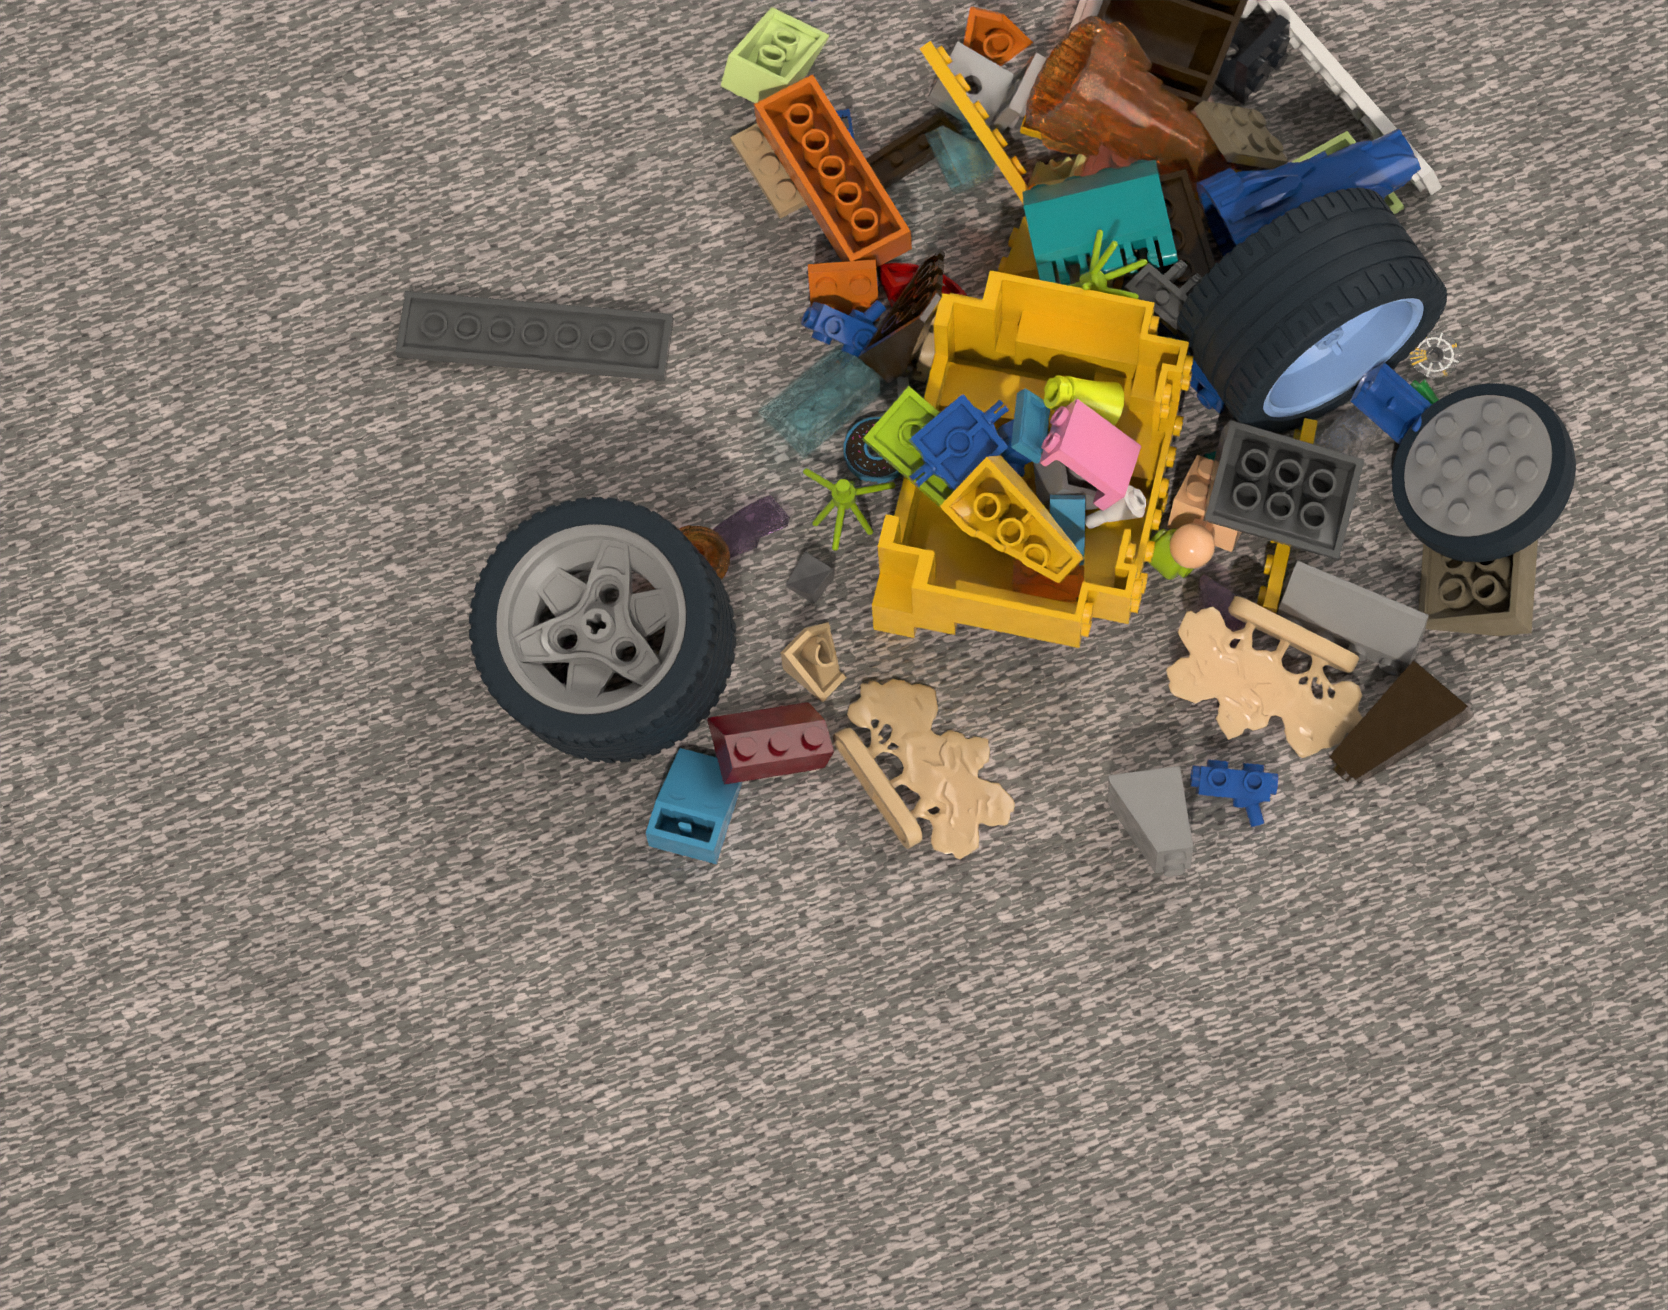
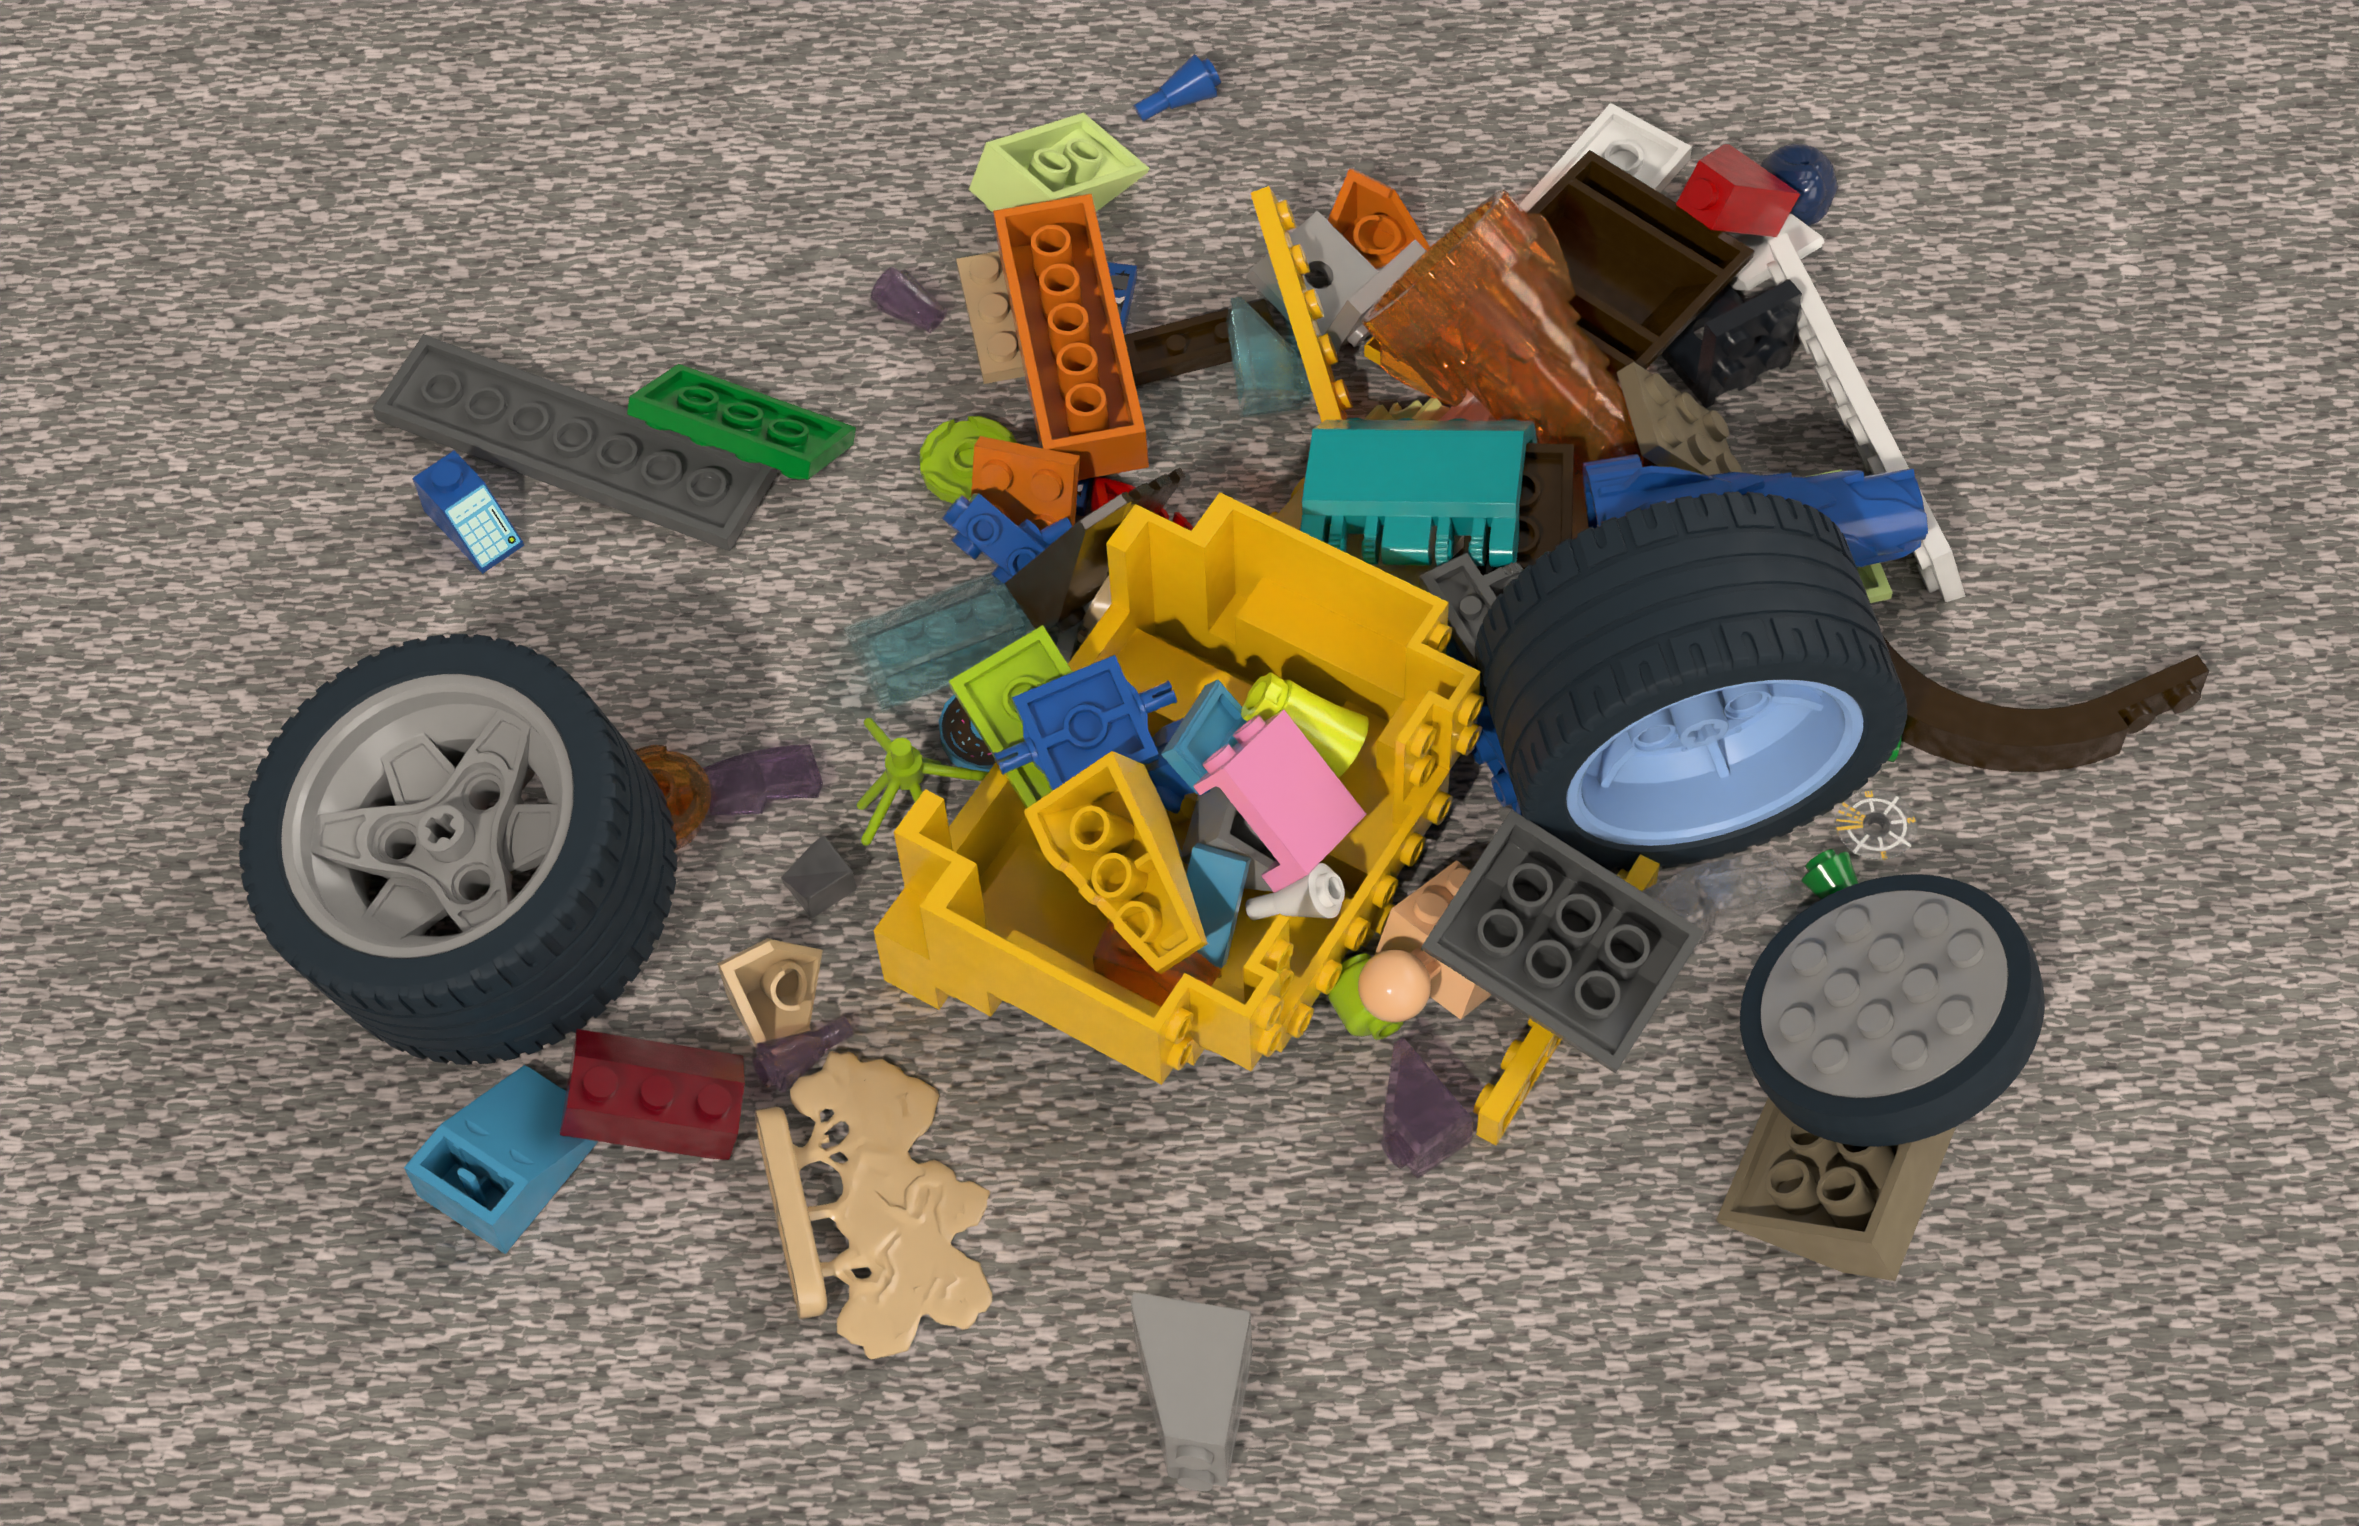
camera: 15 degrees right, 10 degrees down
(488, 405) = (466, 511): none -> slope
(641, 292) = (741, 422): none -> green plate
(711, 176) = (907, 300): none -> clear purple cone
(793, 286) = (941, 469): none -> lime tile
(837, 696) = (789, 1057): none -> cone
(1096, 279) = (1380, 552): lime plant -> none
(1244, 786) = (1355, 1382): blue brick -> none
(1255, 683) = (1426, 1226): tan plant -> none
(1354, 618) = (1613, 1173): light grey slope -> none
(1389, 401) = (1779, 866): blue hinge -> none
(1401, 722) = (1631, 1359): dark brown slope -> none
(1515, 272) = (2039, 738): none -> dark brown arch

